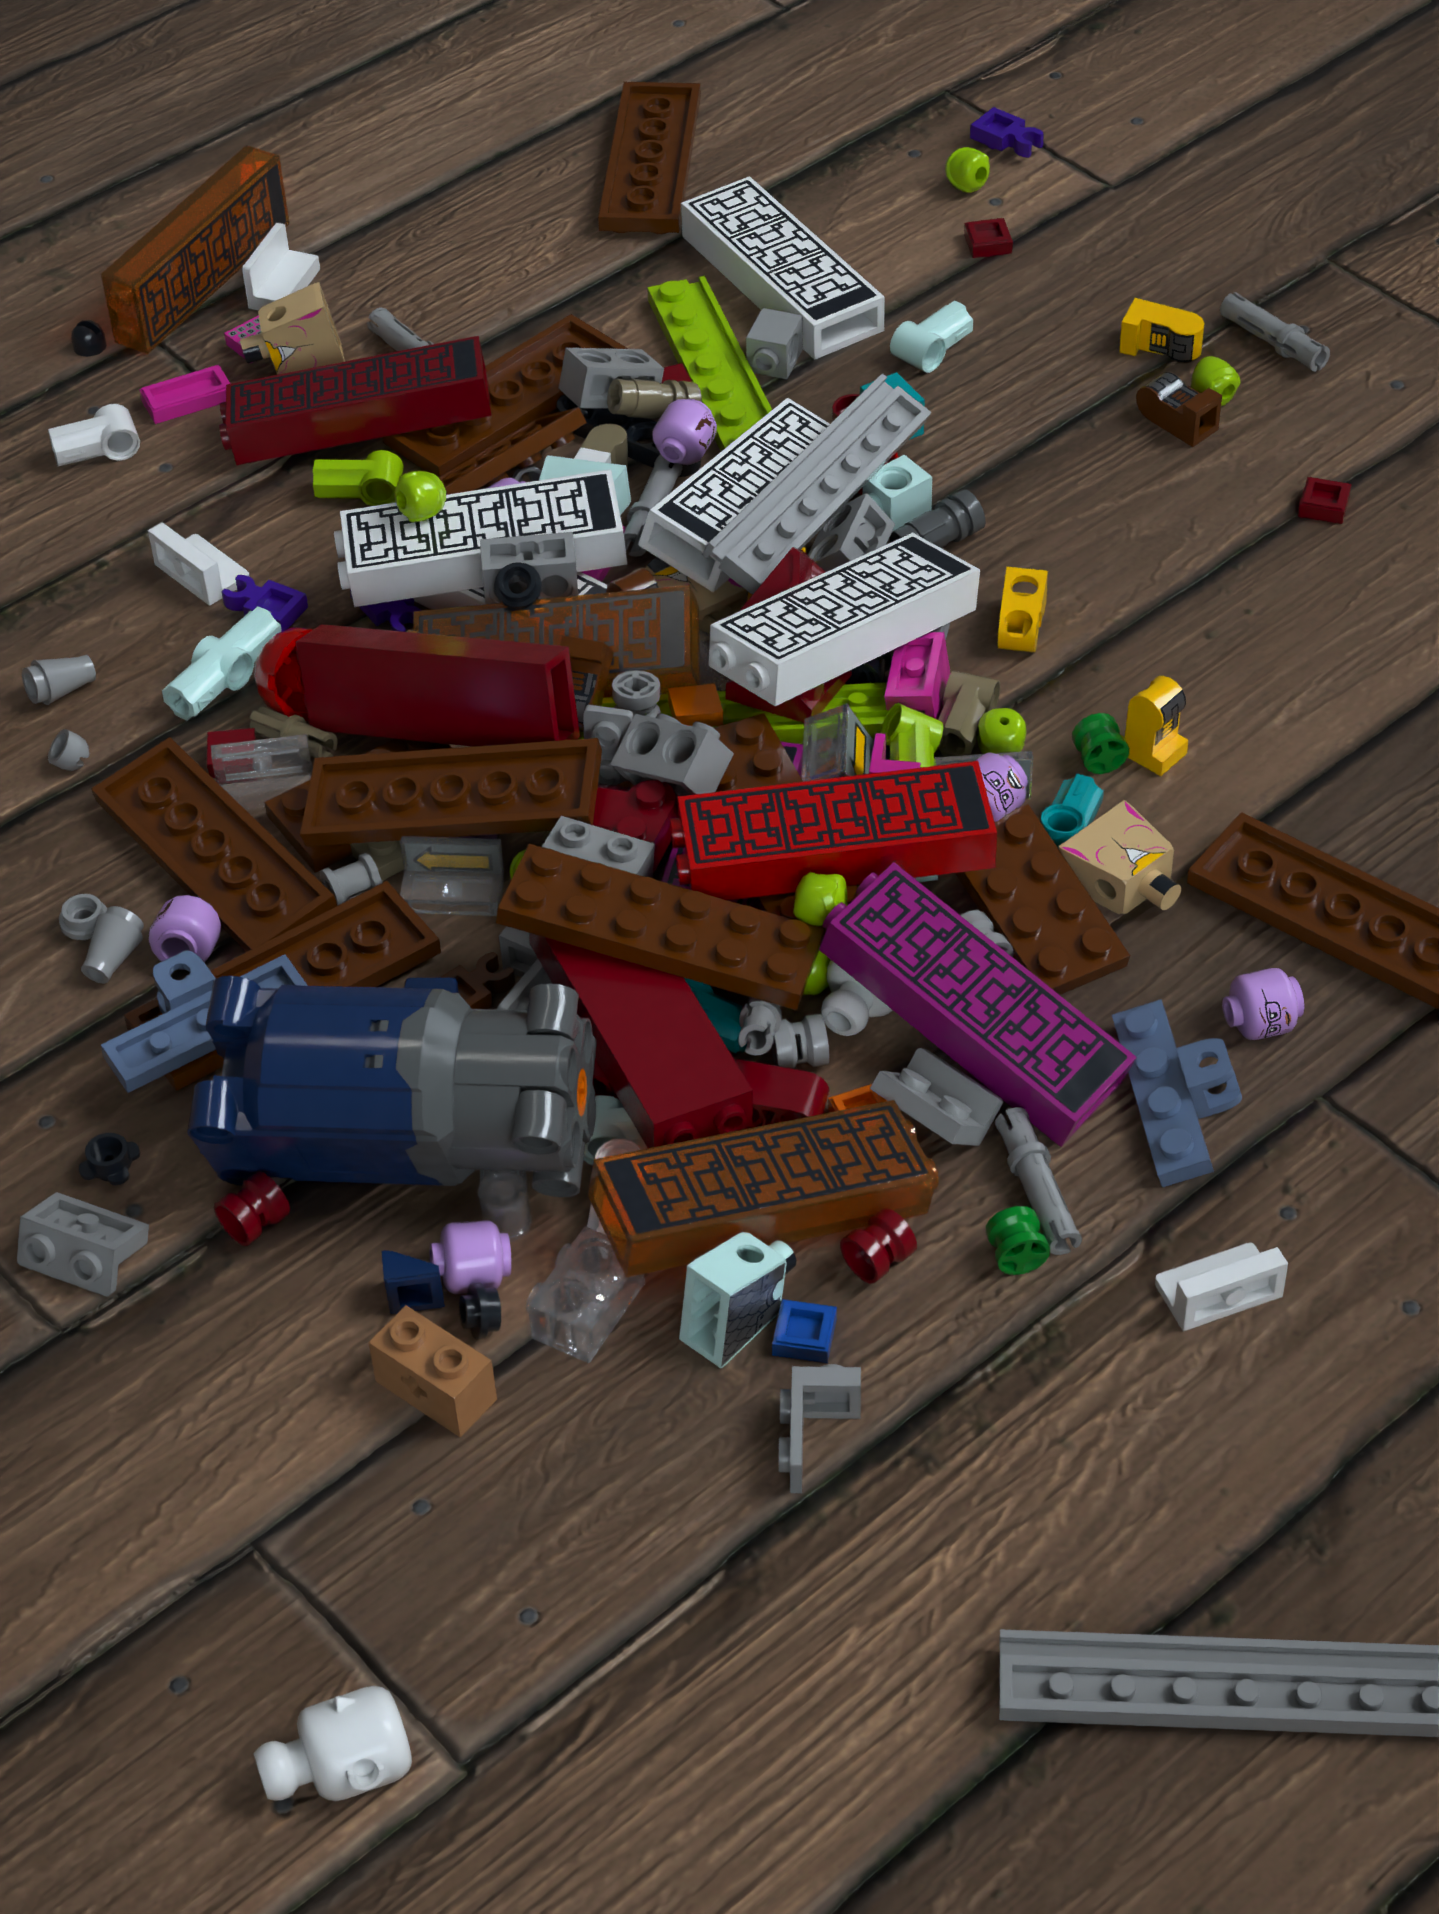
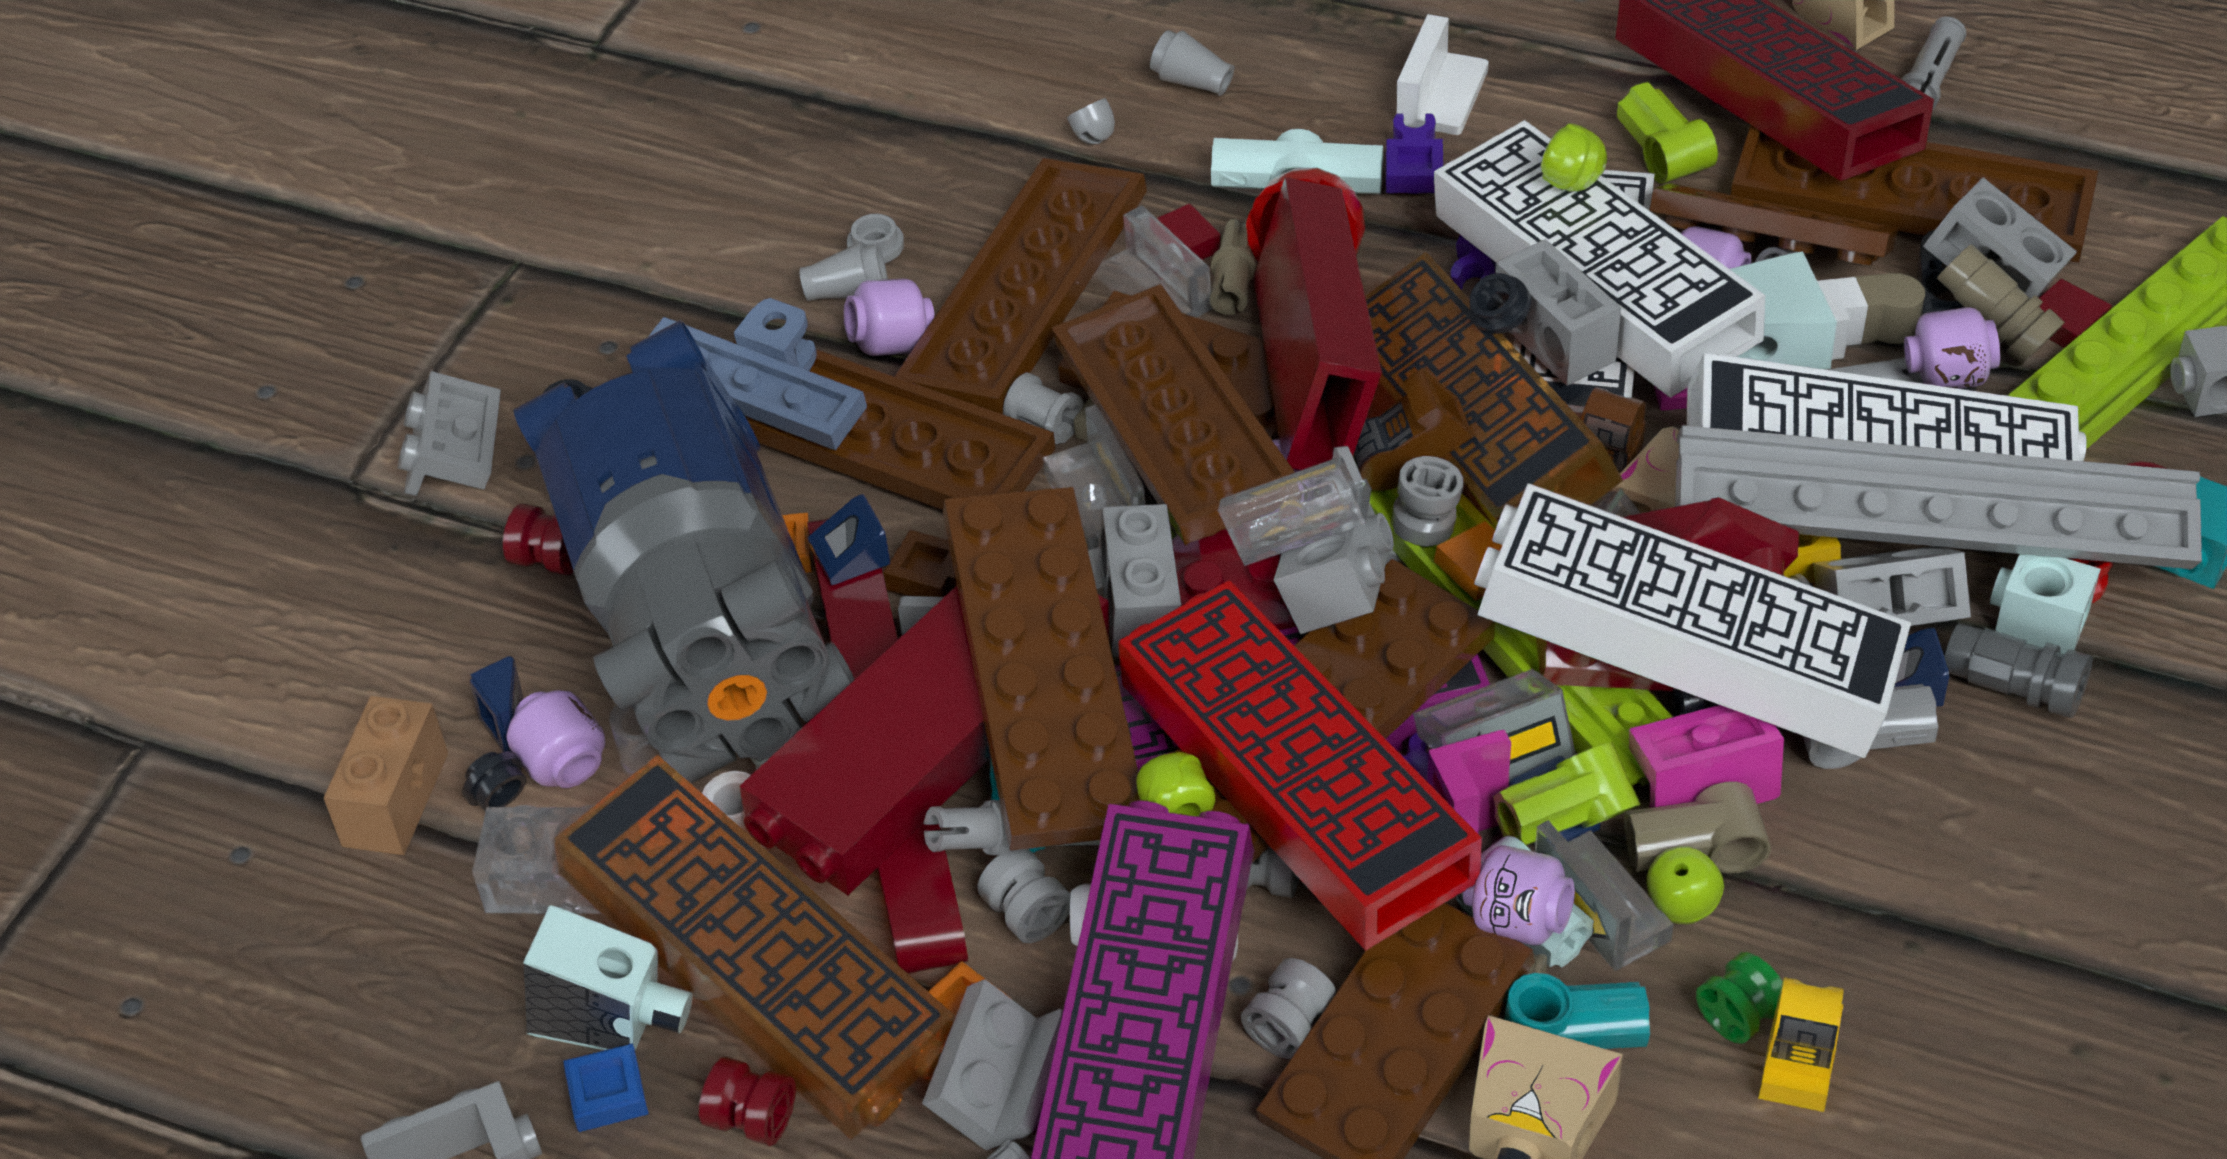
camera: 65 degrees right, 0 degrees up
(639, 746) = (1295, 510): none -> clear panel
(1022, 612) = (1929, 815): yellow leg -> none

